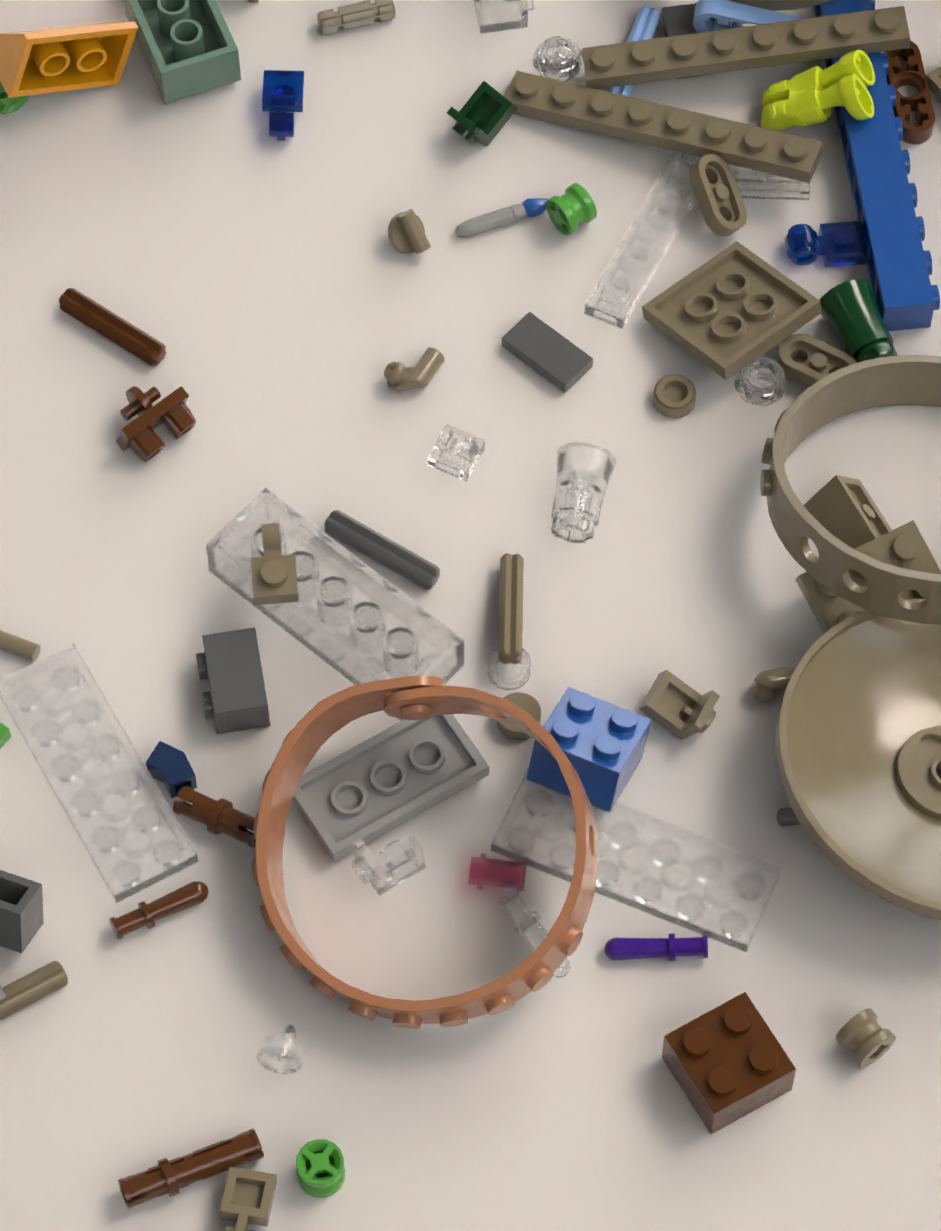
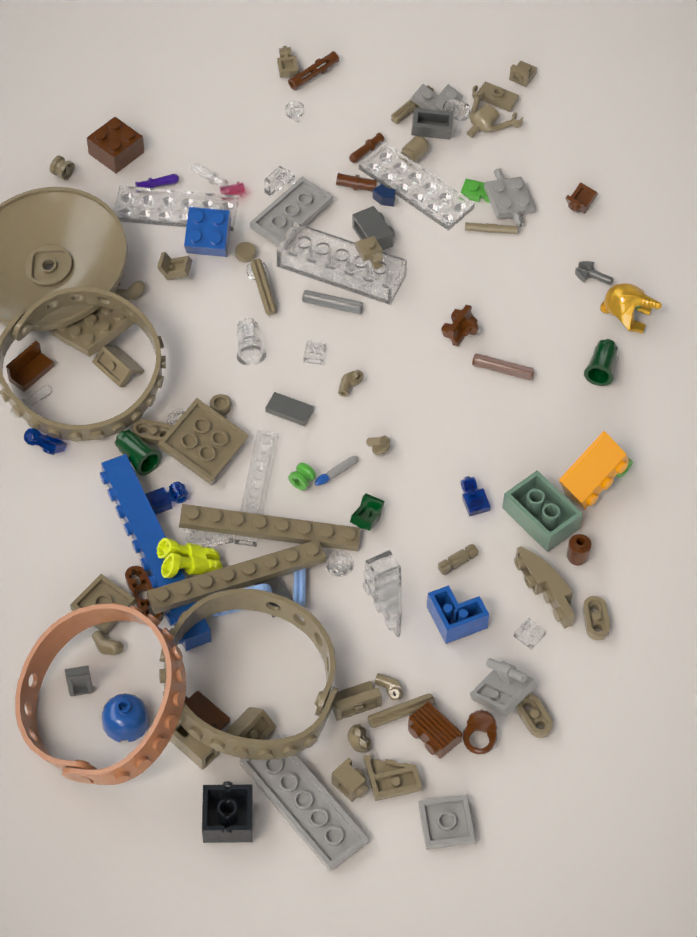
camera: 160 degrees right, 5 degrees down
(57, 863) = (415, 148): none -> dark tan brick
(316, 1158) = (264, 81): bright green wheel -> none
(416, 699) = (267, 205): nougat piece -> none
(717, 195) = (228, 498): dark tan plate -> none

